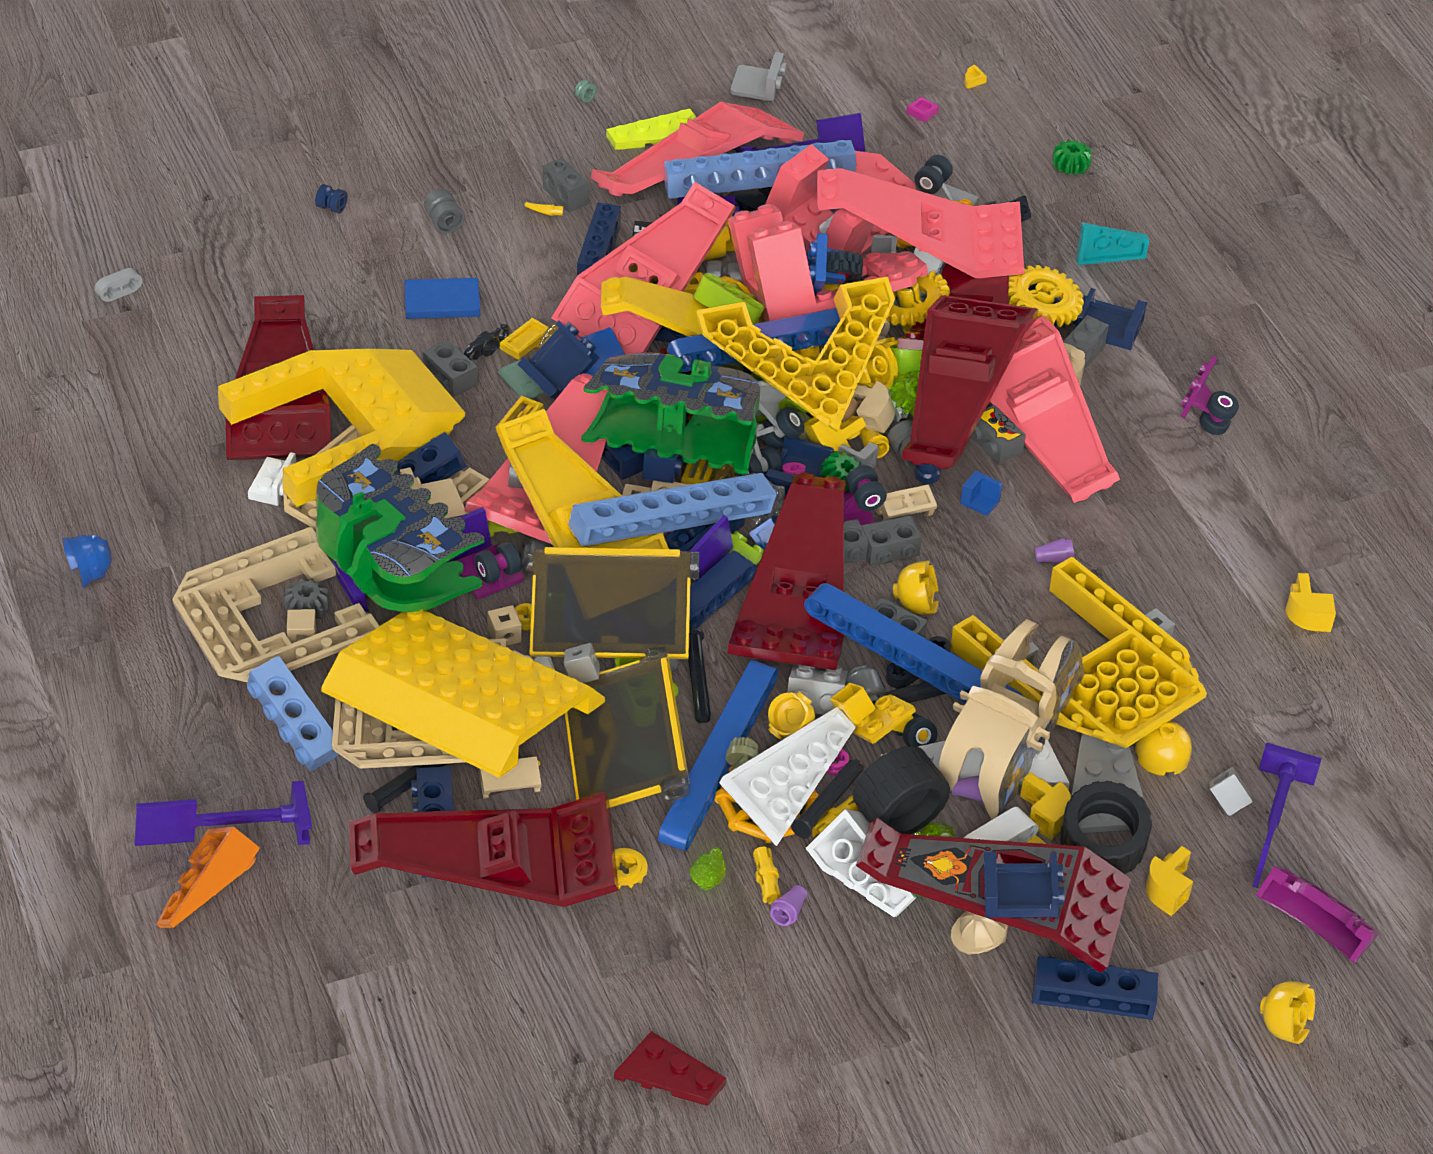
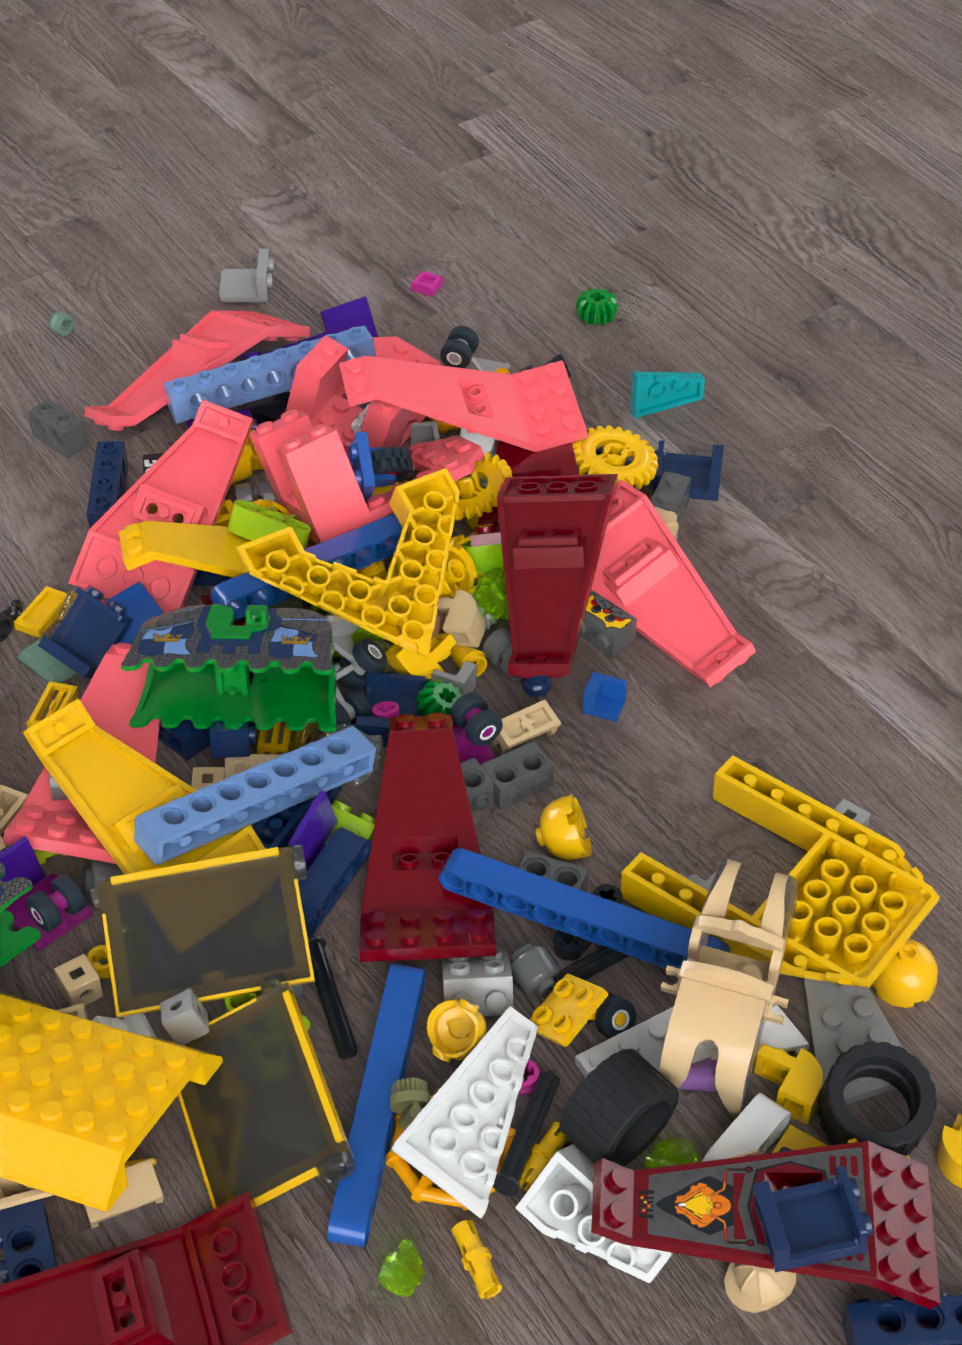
camera: 10 degrees left, 0 degrees up
(550, 210) = (40, 459): yellow helmet -> none
(634, 862) = (304, 1277): yellow gear -> none
(648, 130) = (137, 355): neon yellow wing -> none
(763, 531) = (368, 793): panel -> none
(788, 906) = (514, 1300): medium lavender cone -> none
(853, 702) = (528, 996): yellow piece -> none
(974, 77) = (472, 242): yellow tile -> none
(1054, 551) = (708, 750): medium lavender cone -> none
(1216, 407) = (833, 550): plate -> none

